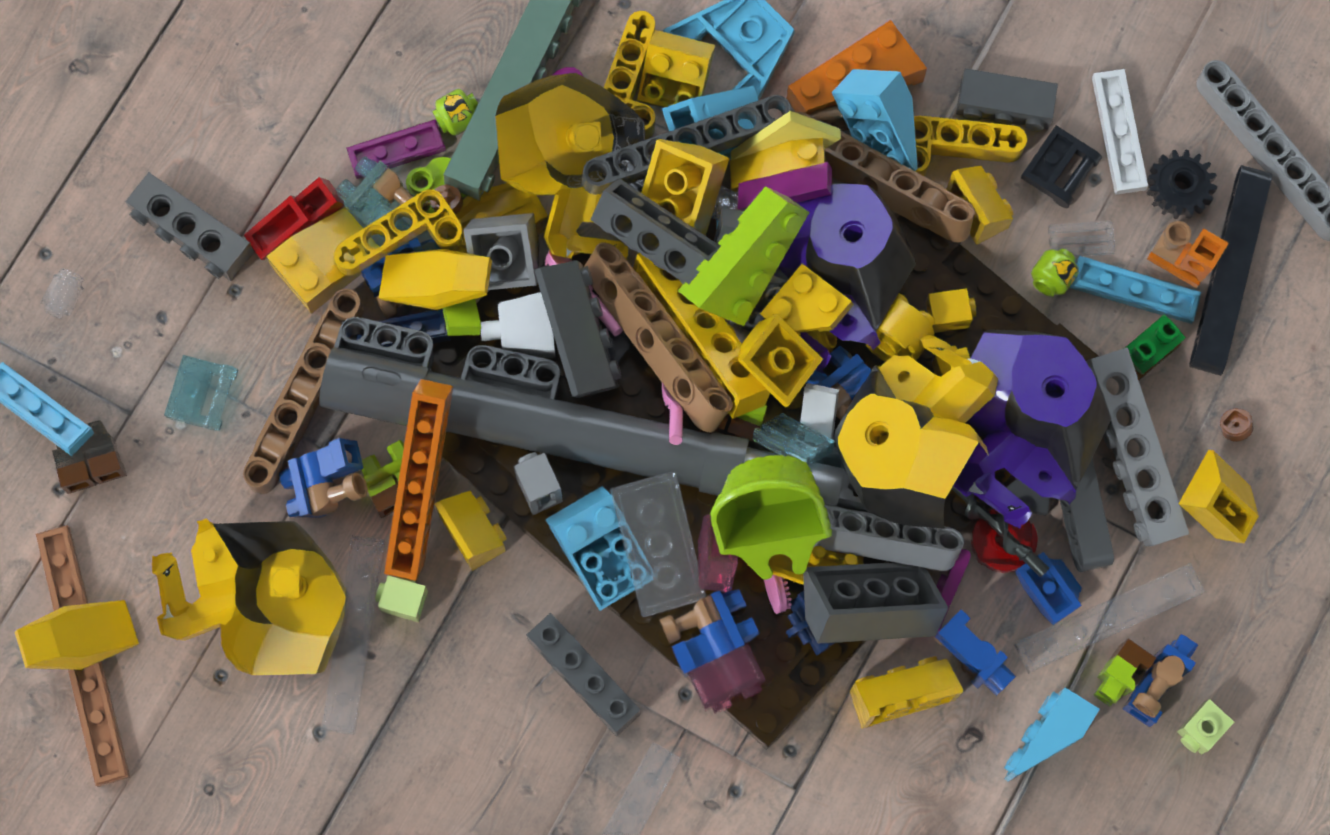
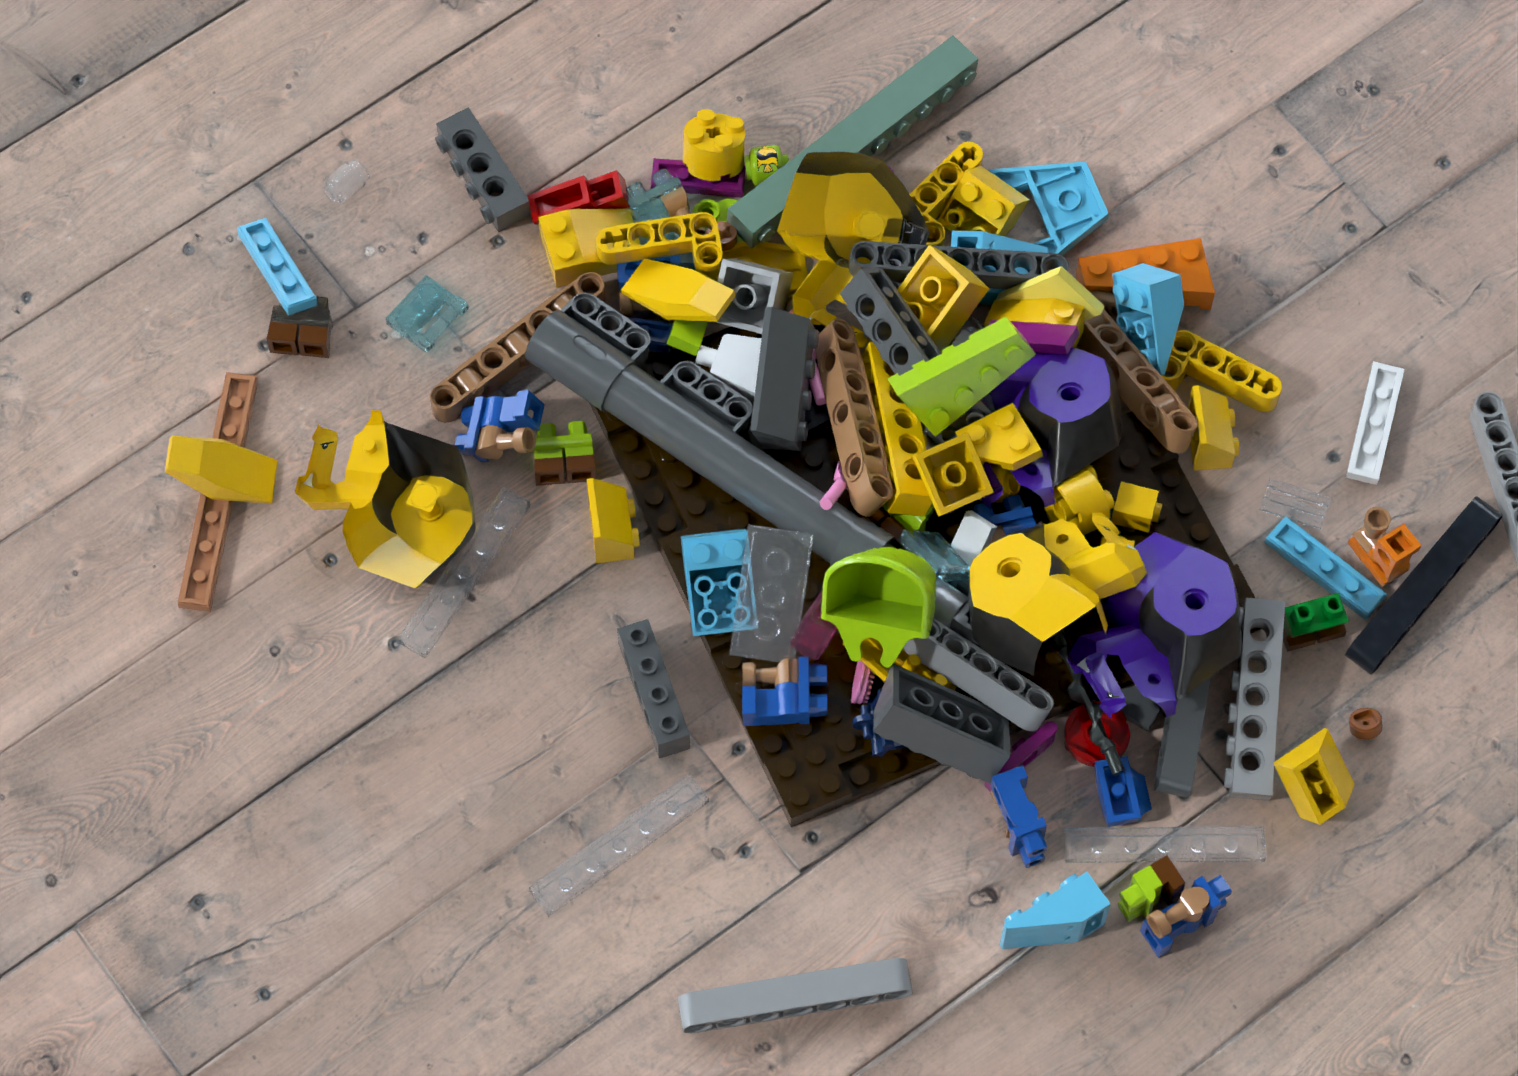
camera: 25 degrees right, 10 degrees down
(399, 114) = (713, 145): none -> yellow brick
(401, 598) = (522, 556): yellowish green brick -> none
(418, 479) = (581, 451): orange brick -> none
(538, 482) = (687, 499): light grey brick -> none
(727, 678) = (780, 739): clear pink brick -> none
(904, 691) = (938, 824): yellow wedge -> none
(1006, 99) = (1280, 352): dark grey brick -> none
(1052, 161) = (1298, 423): black plate -> none
(1054, 272) = (1254, 519): lime head -> none
(1185, 169) = (1416, 477): black gear -> none
(1204, 727) = (1208, 975): yellowish green brick -> none

